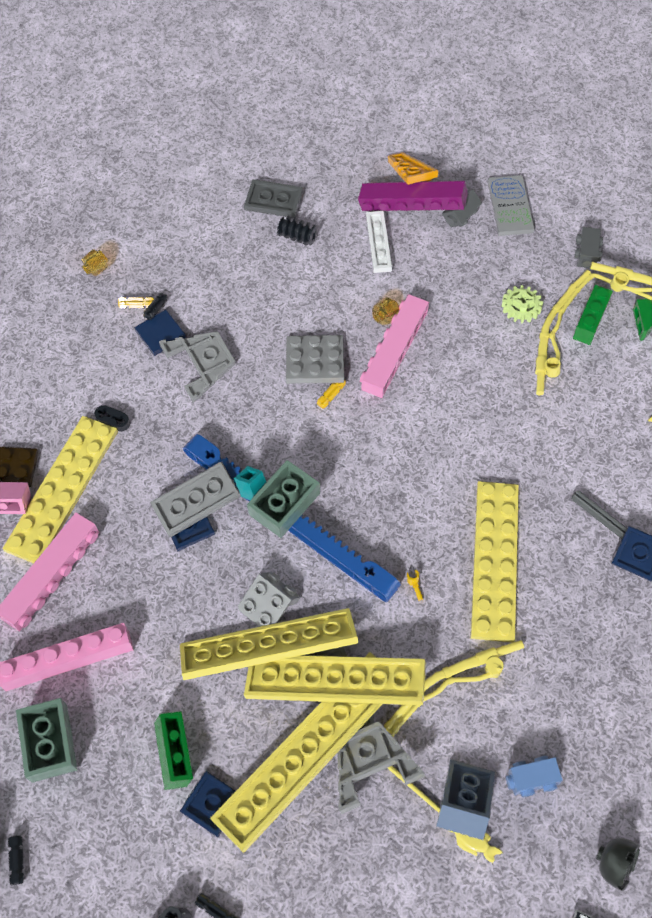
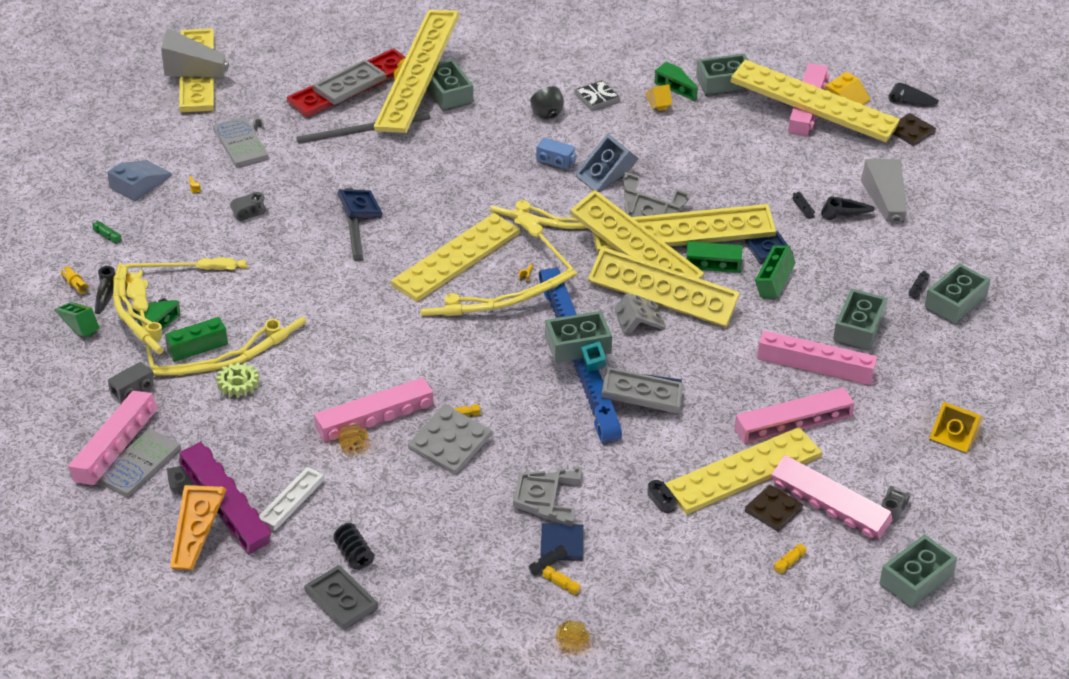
camera: 145 degrees left, 20 degrees down
(253, 735) = (715, 256): none -> green brick
(460, 637) = (452, 301): none -> light yellow piece
(544, 202) = (112, 437): none -> bright pink brick

